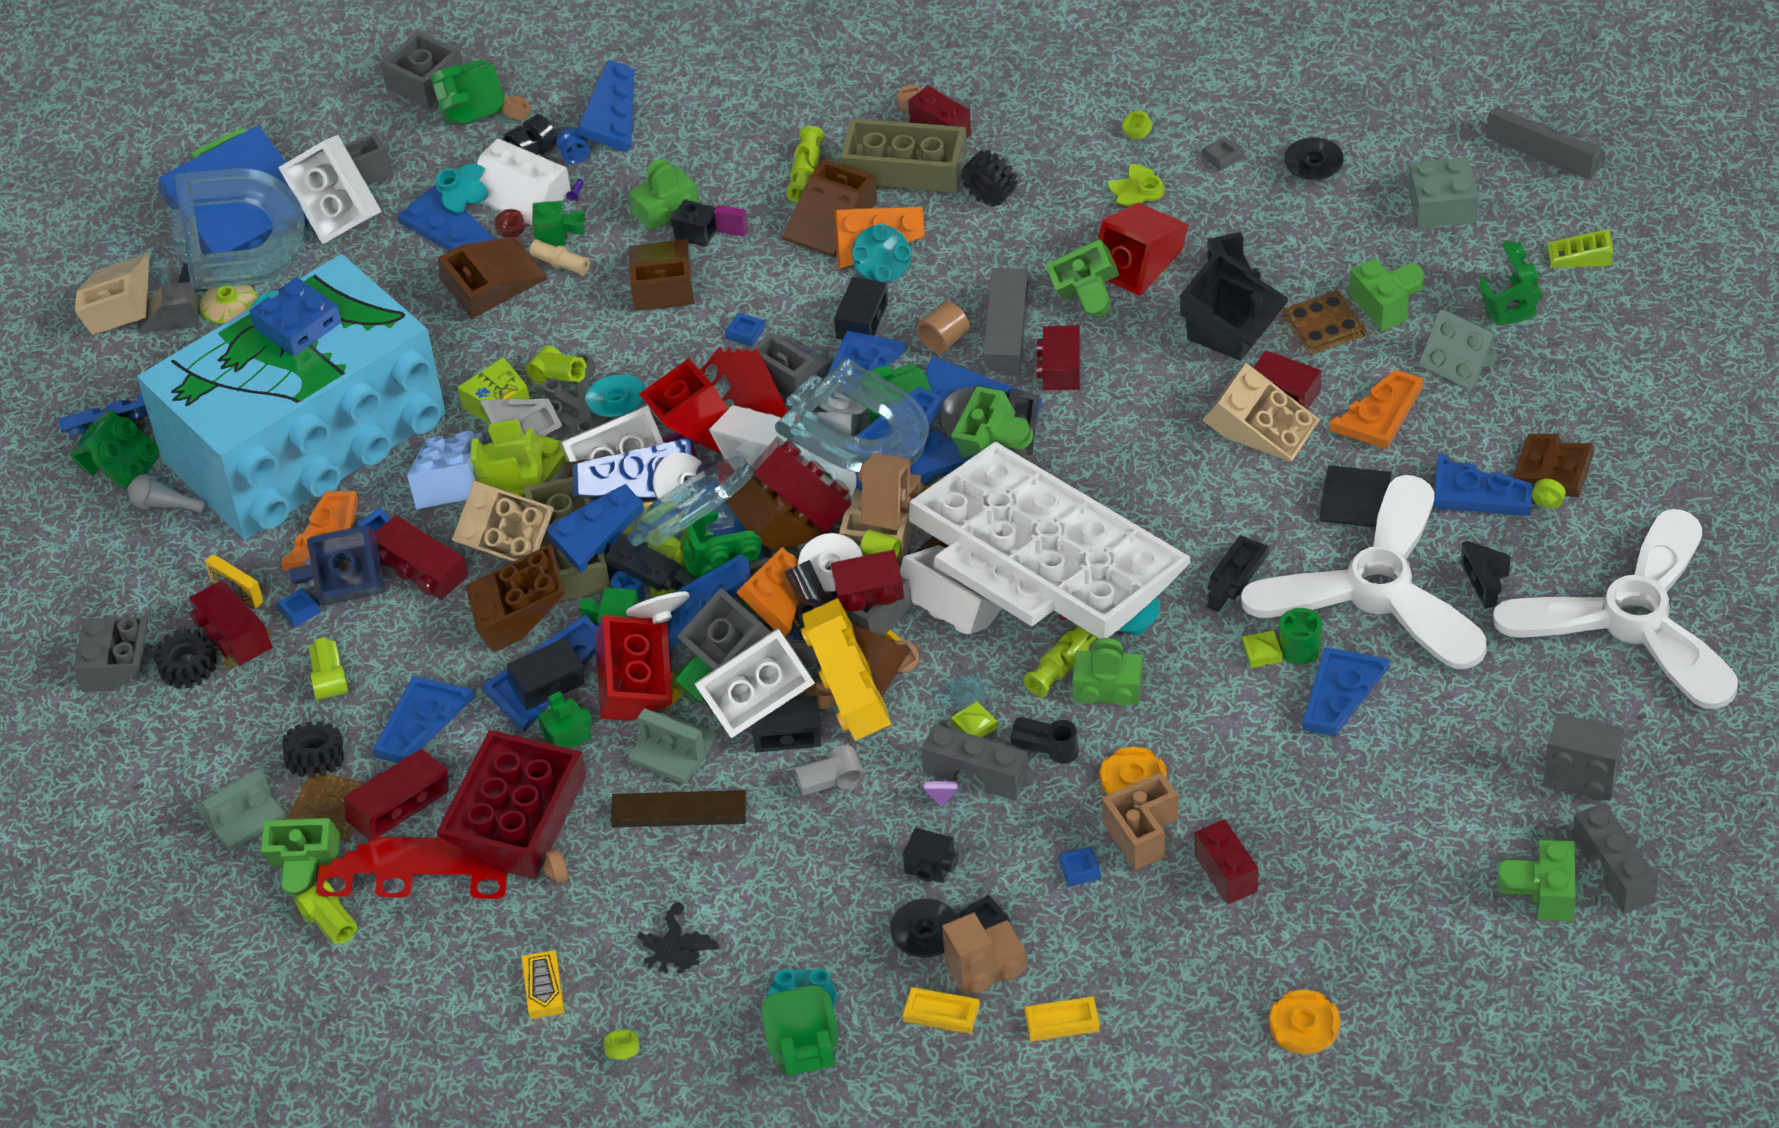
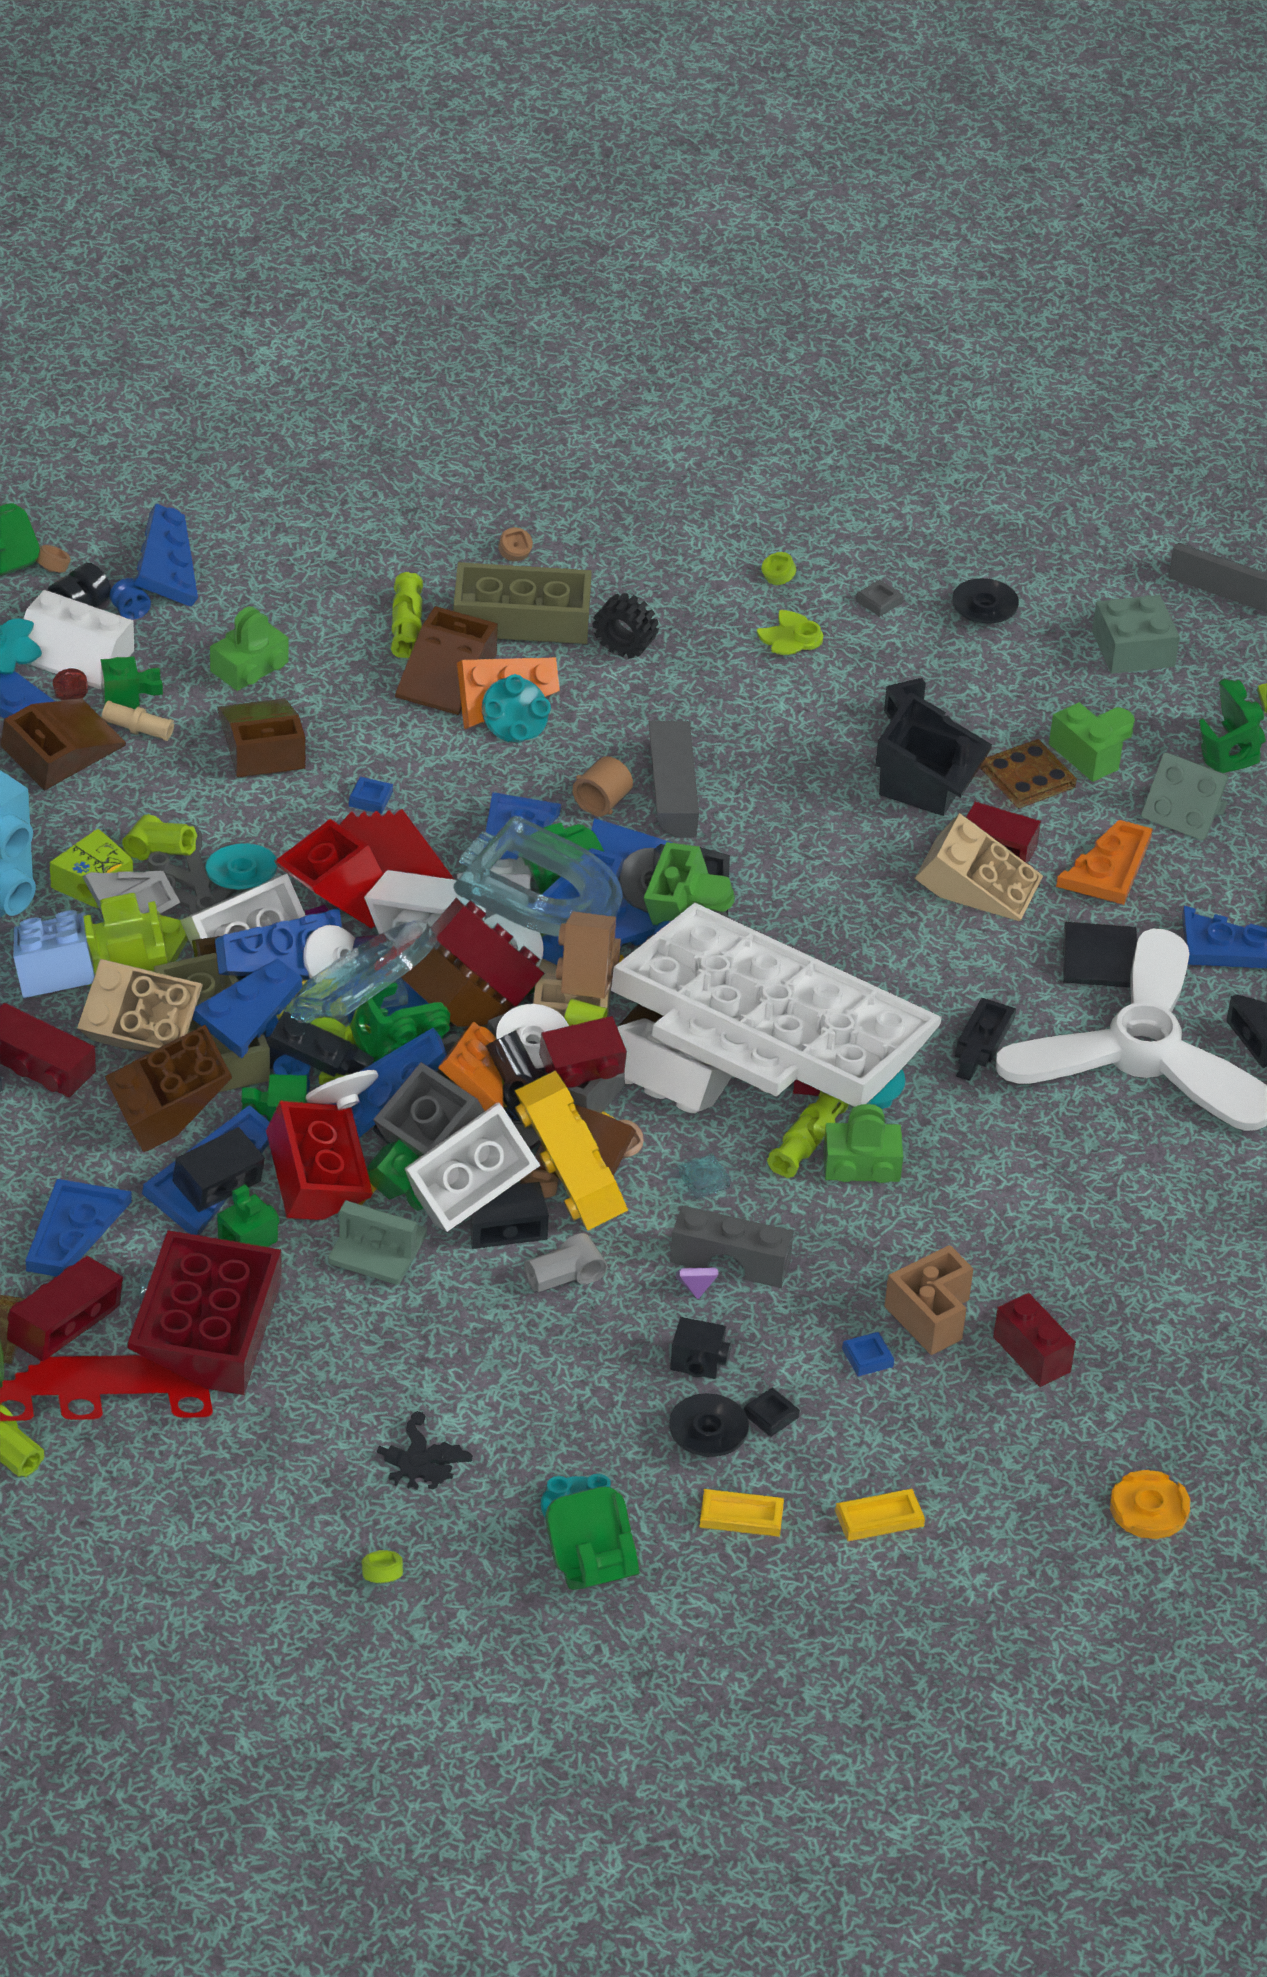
camera: 15 degrees left, 5 degrees down
(542, 984) = (275, 1507): tile -> none
(555, 866) = (268, 1378): medium nougat tile -> none
(573, 195) = (139, 651): dark purple piece -> none
(678, 808) = (396, 1311): dark brown tile -> none
(694, 222) = (290, 679): black brick -> none
(731, 220) = (333, 677): magenta tile -> none
(790, 362) = (442, 829): dark grey slope -> none
(861, 307) = (504, 767): black panel -> none
(937, 109) = (550, 551): dark red brick -> none
(974, 721) = (720, 1201): lime tile -> none
(981, 956) = (780, 1448): medium nougat brick -> none
(1056, 739) = (819, 1219): black piece -> none
(1059, 357) = (742, 816): dark red brick -> none
(1084, 275) = (755, 727): bright green brick -> none
(1126, 766) = (887, 1251): light orange tile -> none
(1141, 244) = (806, 697): red slope -> none
(1262, 649) = (1027, 1117): lime tile -> none
(1300, 636) = (1069, 1101): green piece -> none
(1340, 688) = (1123, 1155): blue wing -> none

